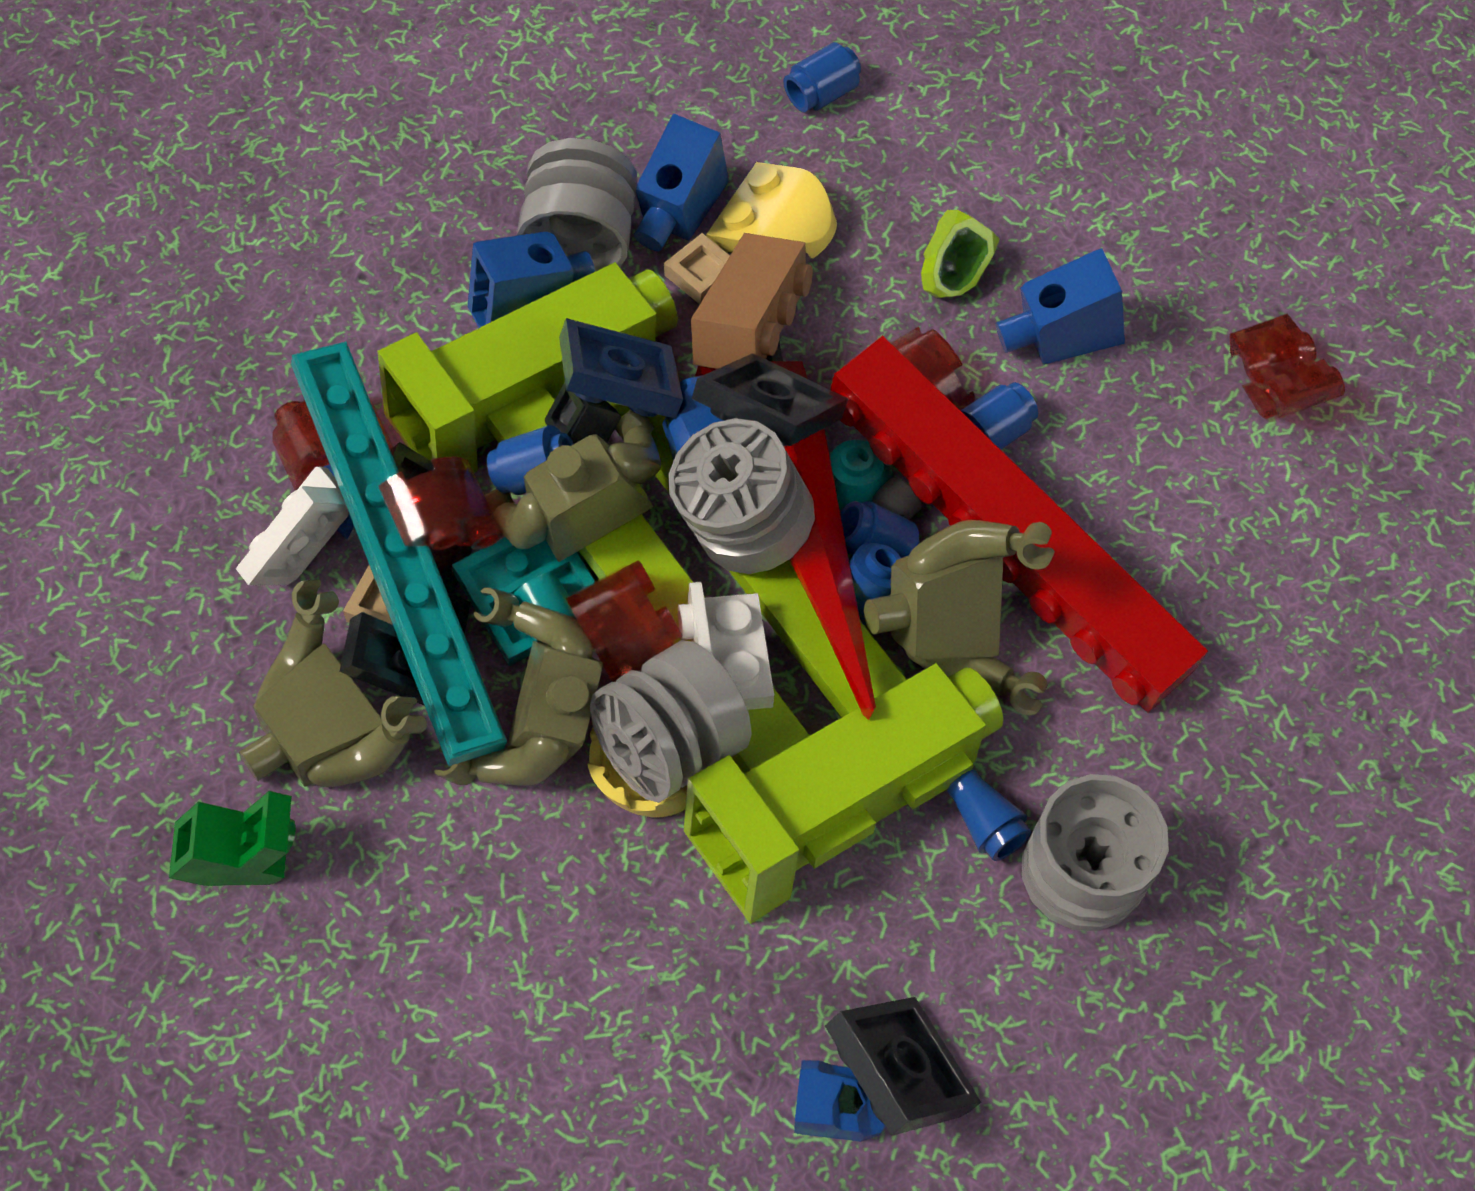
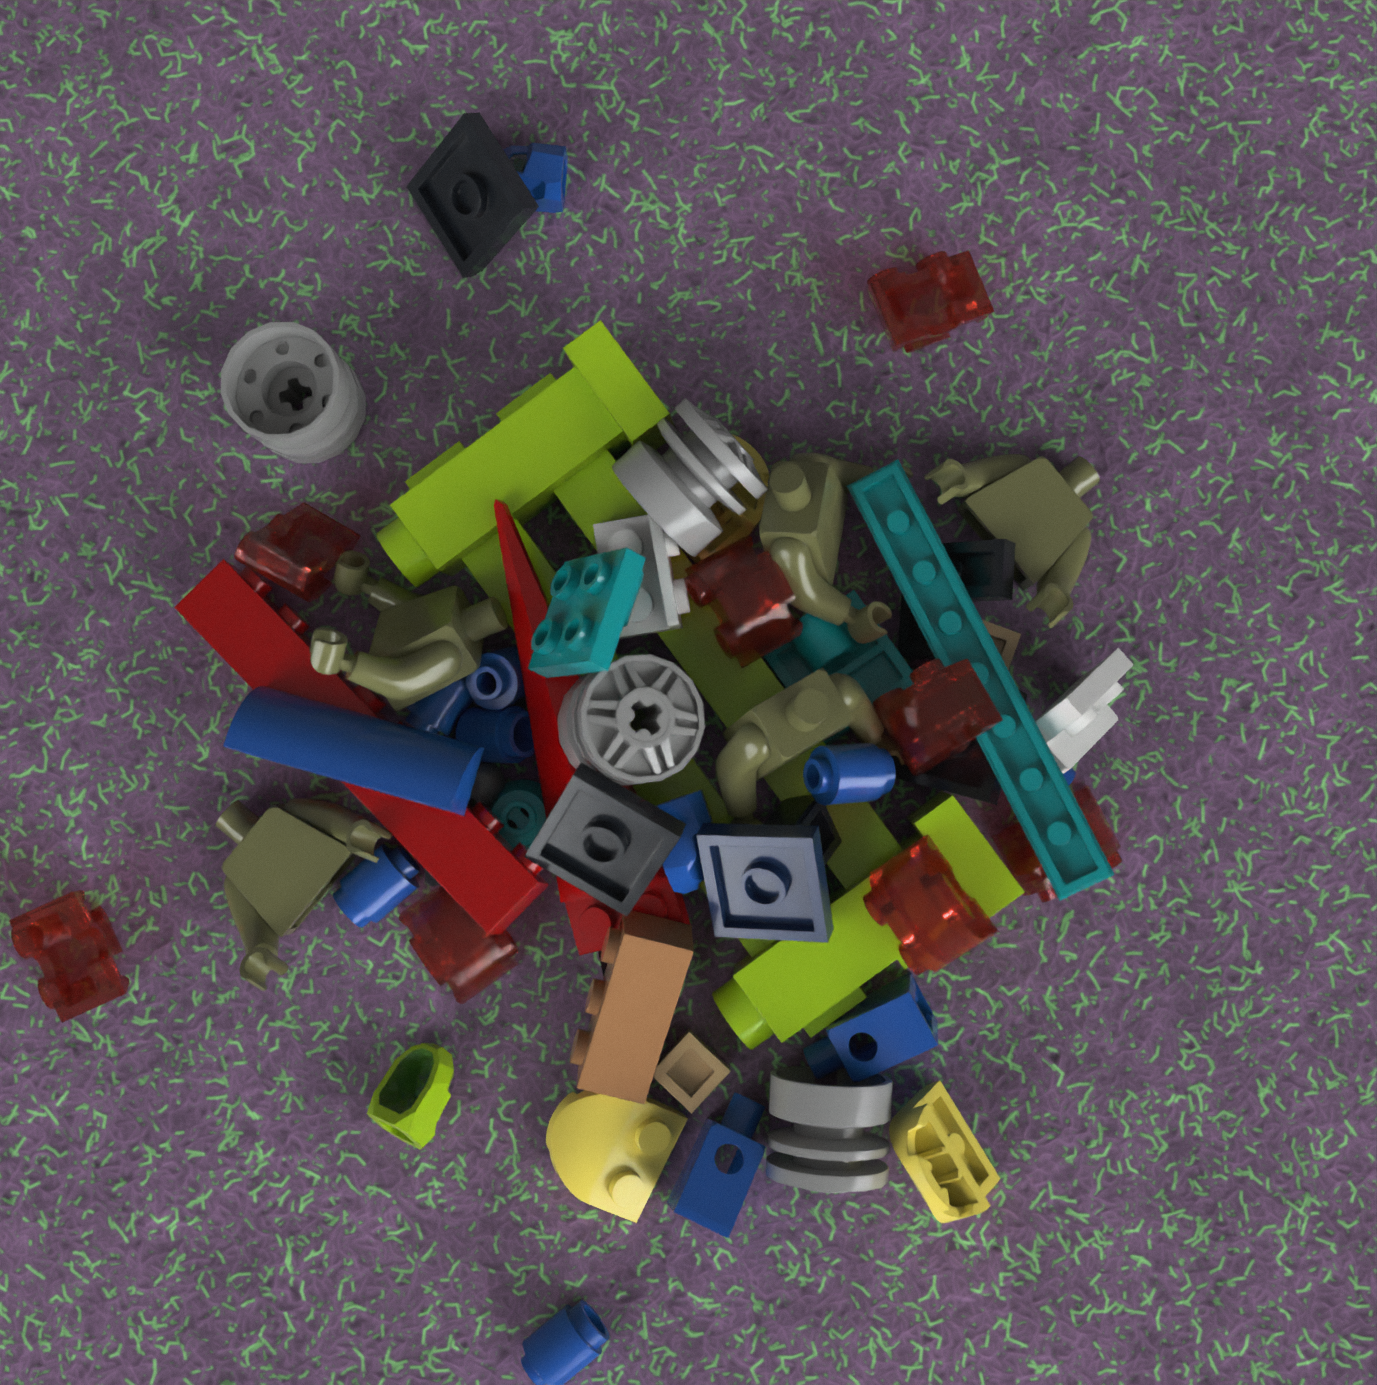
camera: 175 degrees right, 25 degrees up
(233, 846) = (1090, 385): green brick -> none
(398, 941) = (928, 303): none -> clear red cylinder
(475, 341) = (926, 908): none -> clear red cylinder
(477, 187) = (942, 1155): none -> light yellow slope
(779, 581) = (587, 613): none -> teal plate
(990, 817) = (390, 442): blue cone -> none
(1011, 484) = (356, 748): none -> blue brick
(1068, 311) = (268, 1022): blue torso -> none
(1084, 710) = (297, 550): none -> clear red cylinder
(1085, 431) = (285, 869): none -> olive torso

